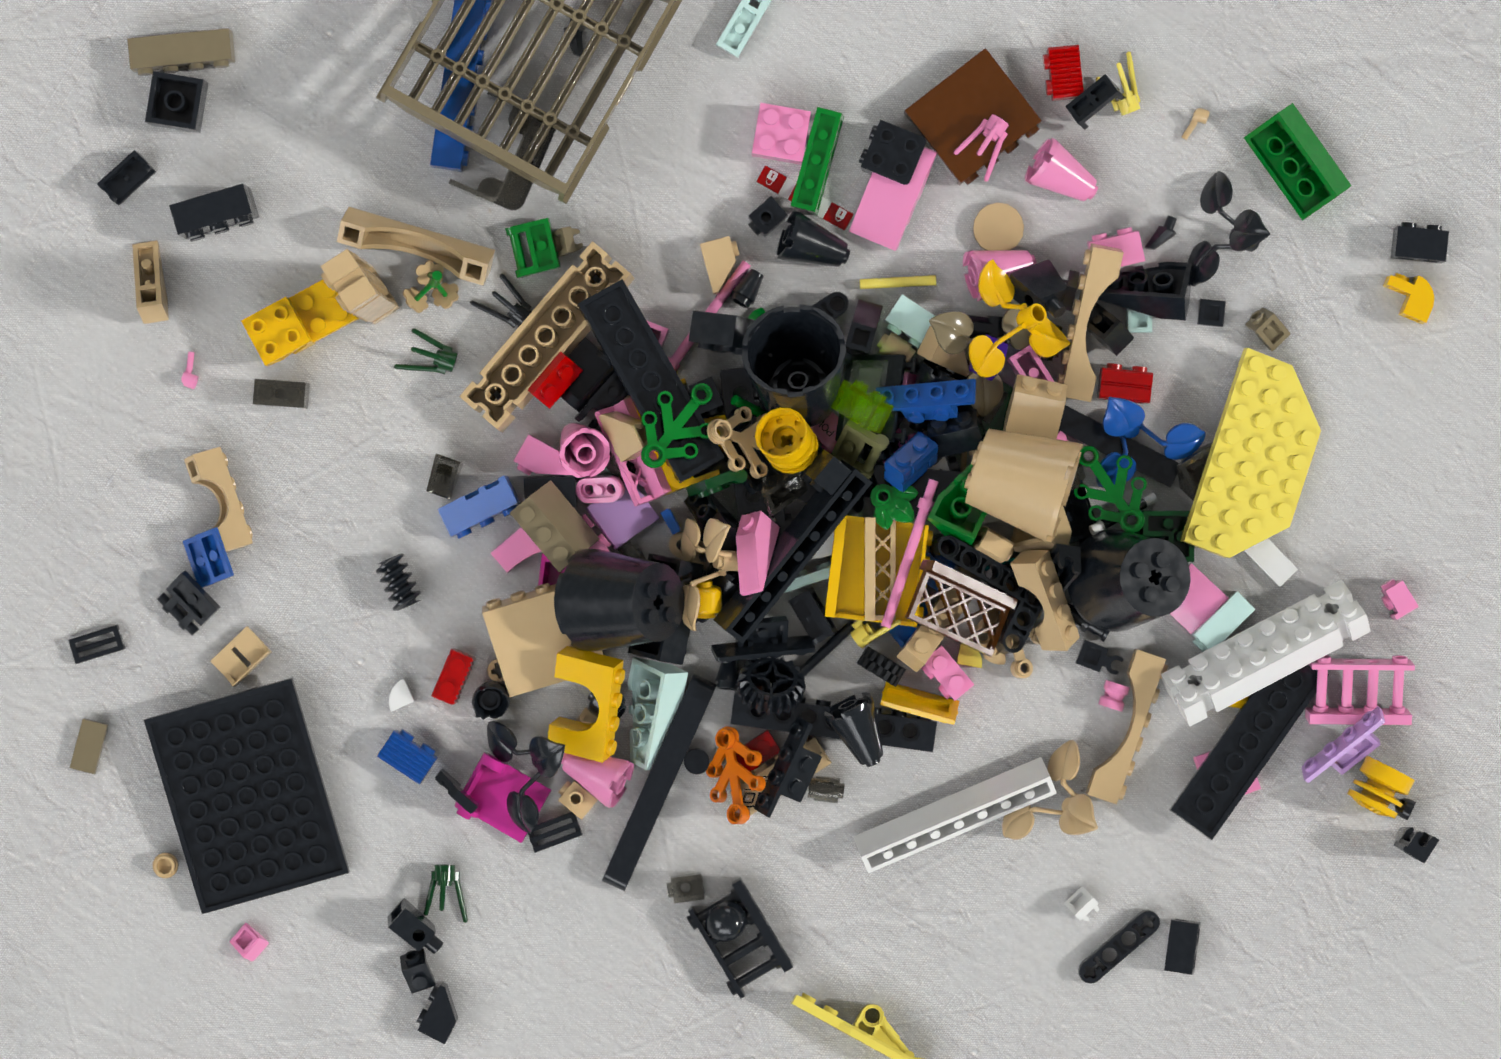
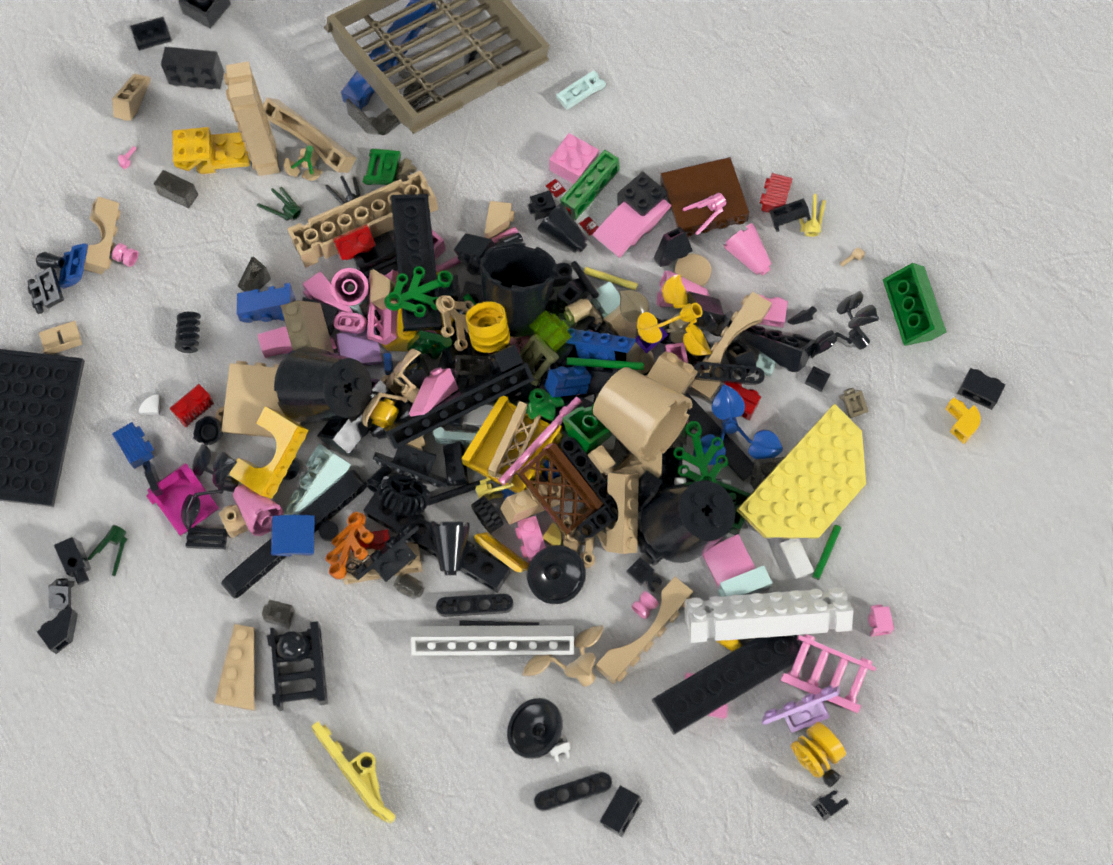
camera: 25 degrees right, 20 degrees down
(172, 561) = (45, 260): none -> black cone
(263, 512) = (124, 254): none -> bright pink wheel
(662, 792) = (292, 535): none -> blue slope
(674, 978) = (238, 673): none -> tan wing
(869, 304) = (585, 280): none -> black bar
(881, 357) = (578, 310): none -> tan brick
(913, 781) = (474, 601): none -> black beam
(949, 422) = (605, 363): none -> green bar
(949, 790) = (496, 623): none -> black bar
(961, 211) = (672, 246): none -> black slope
(1004, 710) = (563, 584): none -> black dish
(1035, 901) = (527, 724): none -> black dish
(1102, 365) = (728, 373): none -> black beam
(1304, 527) = (826, 552): none -> green bar

